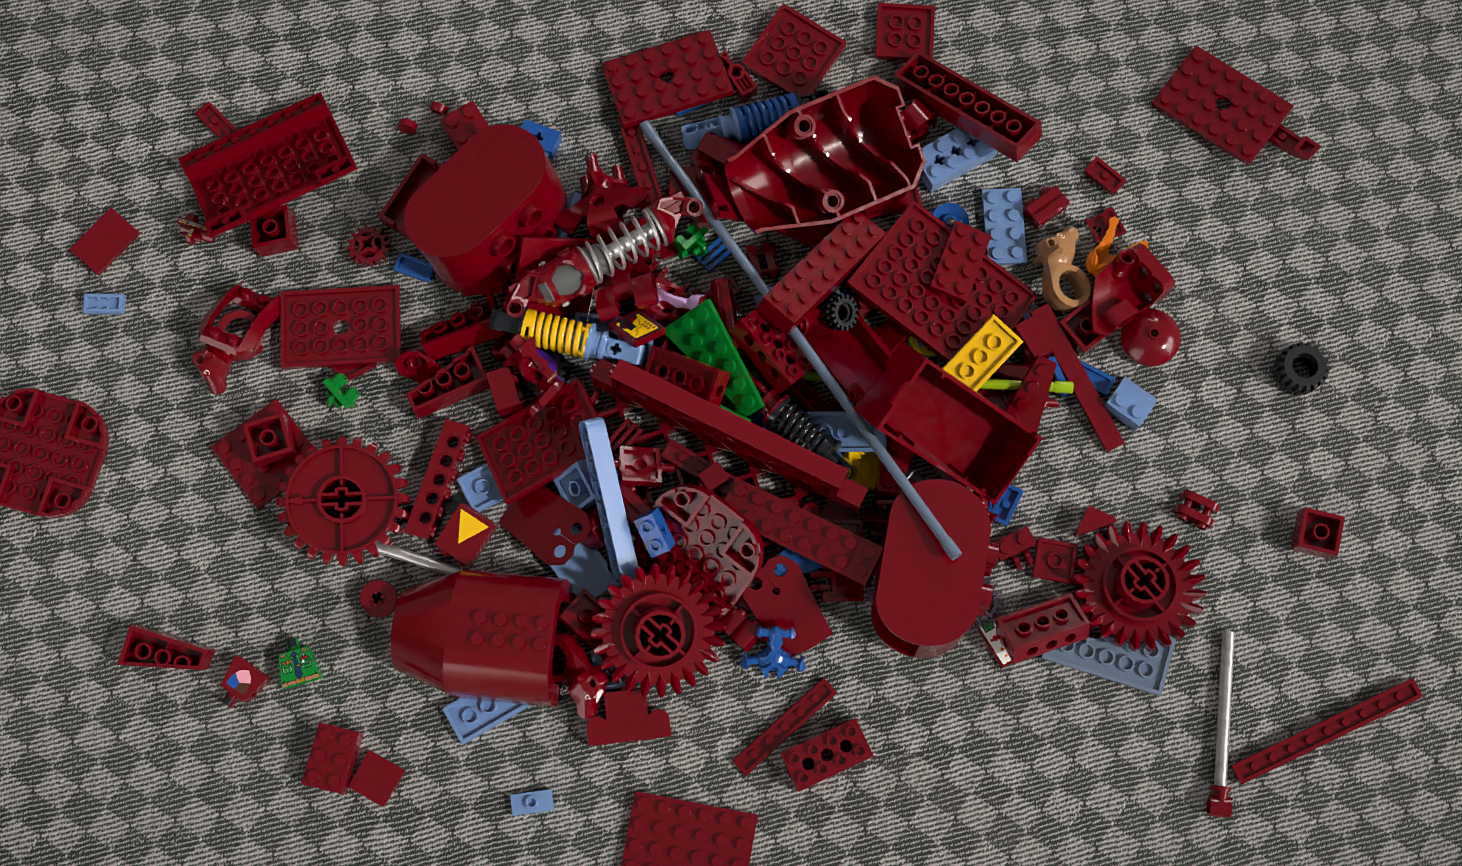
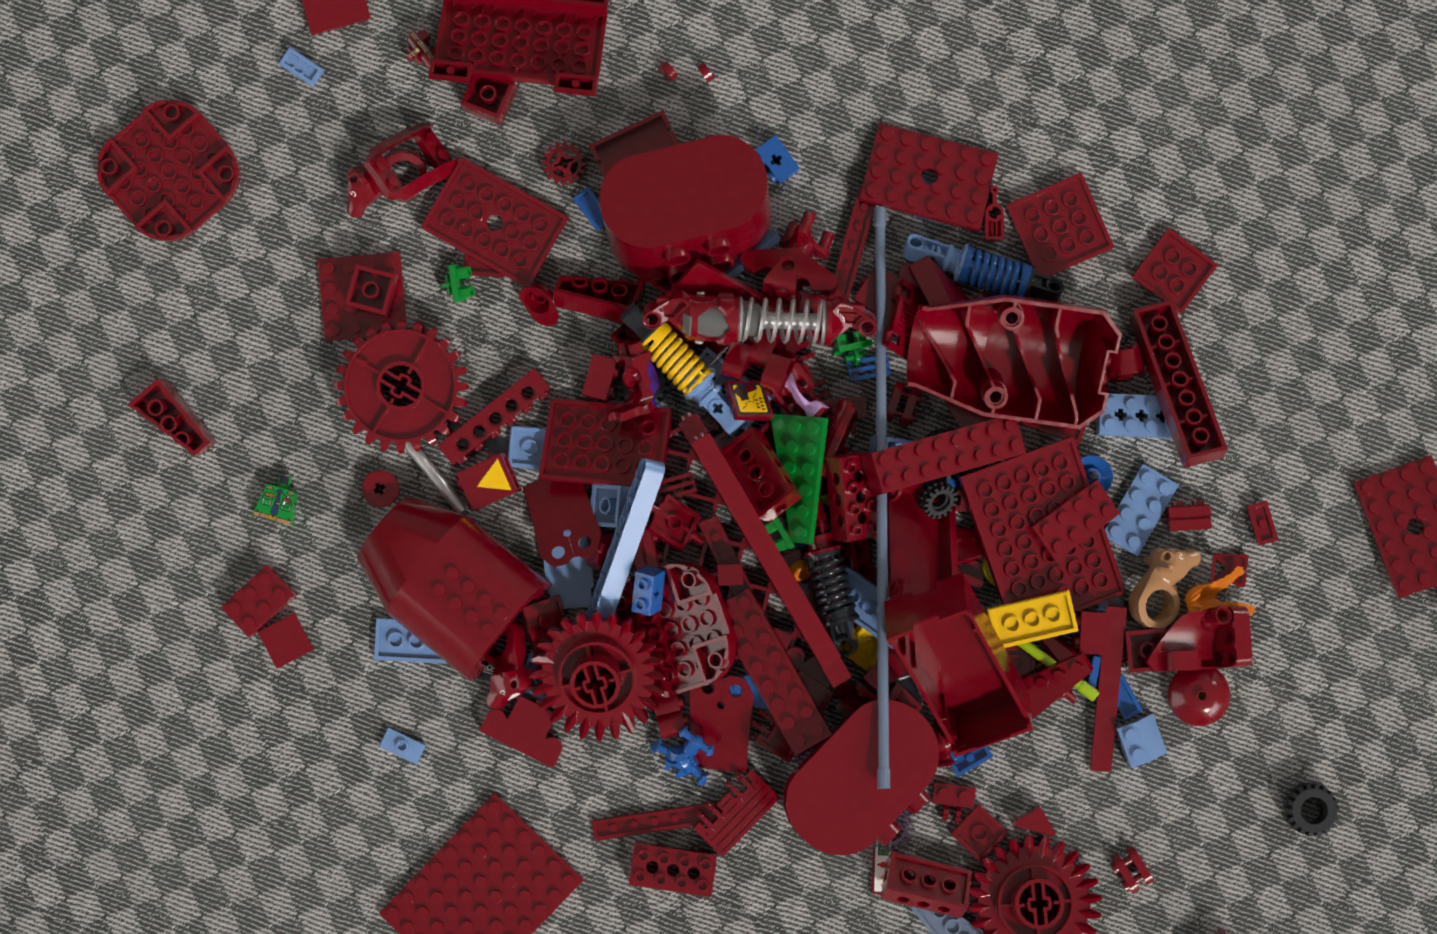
camera: 30 degrees right, 10 degrees up
(243, 681) = (223, 485): dark red torso -> none
(450, 385) = (557, 339): dark red wedge -> none
(463, 124) = (718, 109): dark red brick -> none
(849, 673) = (737, 812): none -> dark red hinge

